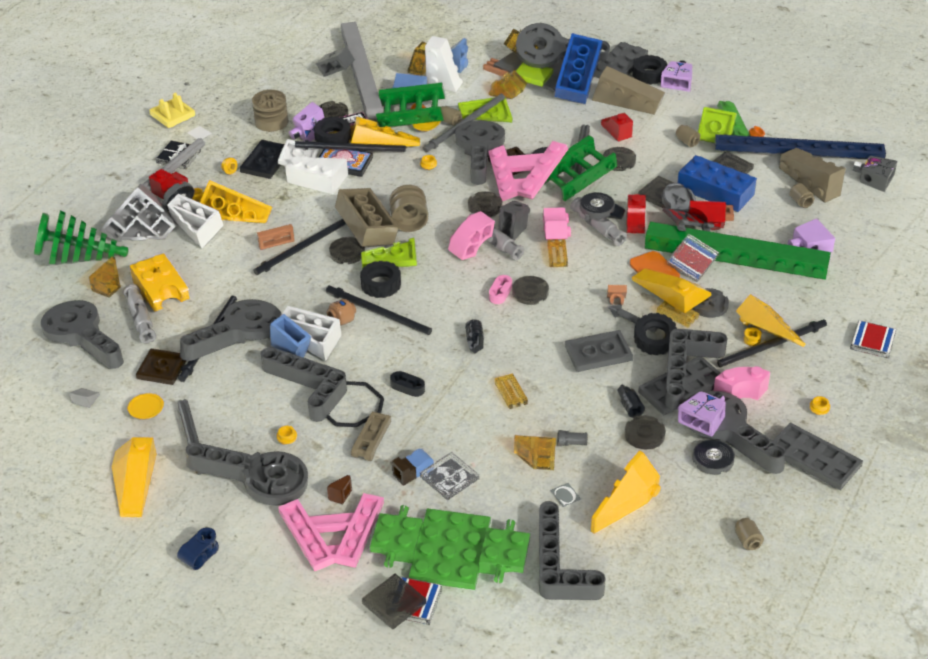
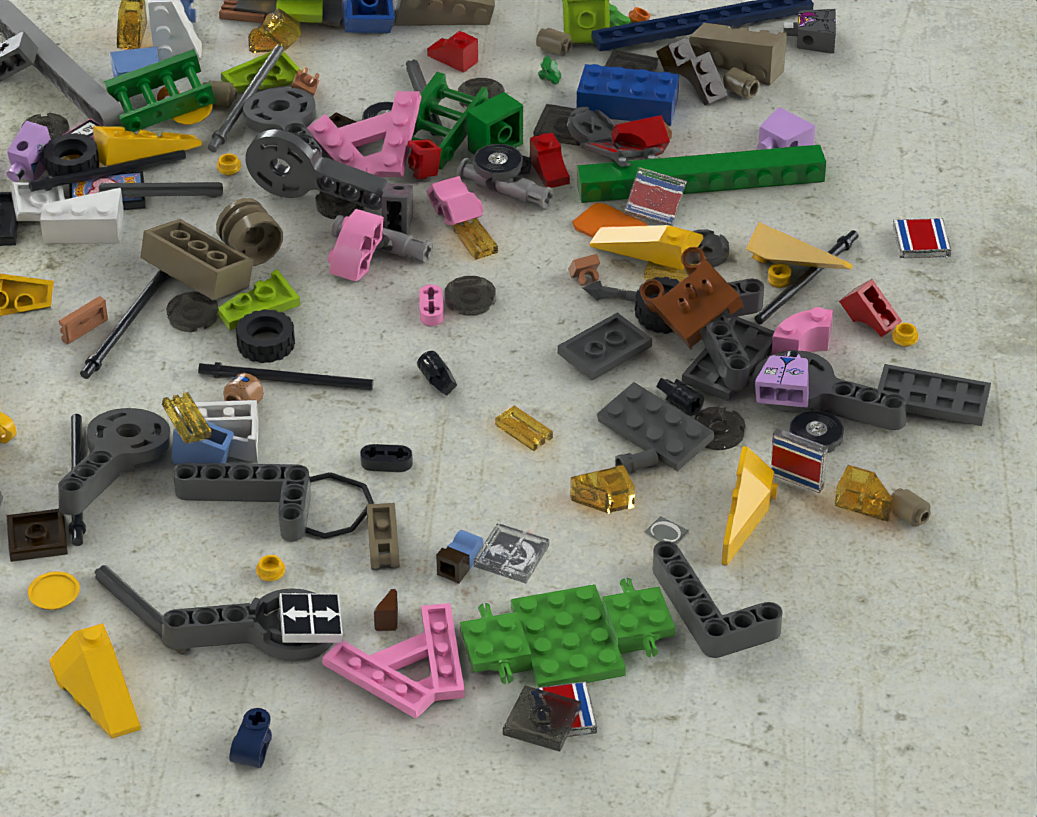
camera: 25 degrees left, 0 degrees up
(282, 305) = (191, 417): none -> clear yellow tile
(282, 477) = (310, 618): none -> black tile
(377, 167) = (165, 189): none -> dark grey axle
(460, 176) = (309, 174): none -> dark grey beam
(508, 123) = (305, 81): none -> nougat tile
(551, 190) = (424, 158): none -> red brick
(600, 417) = (655, 425): none -> dark grey plate
(612, 179) = (495, 122): none -> green brick
(670, 334) = (693, 300): none -> dark orange piece
(674, 154) = (549, 70): none -> green plant
(682, 473) = (798, 460): none -> tile
(718, 511) = (863, 493): none -> clear yellow slope
(773, 178) = (699, 70): none -> arch
(803, 378) = (871, 307): none -> red arch

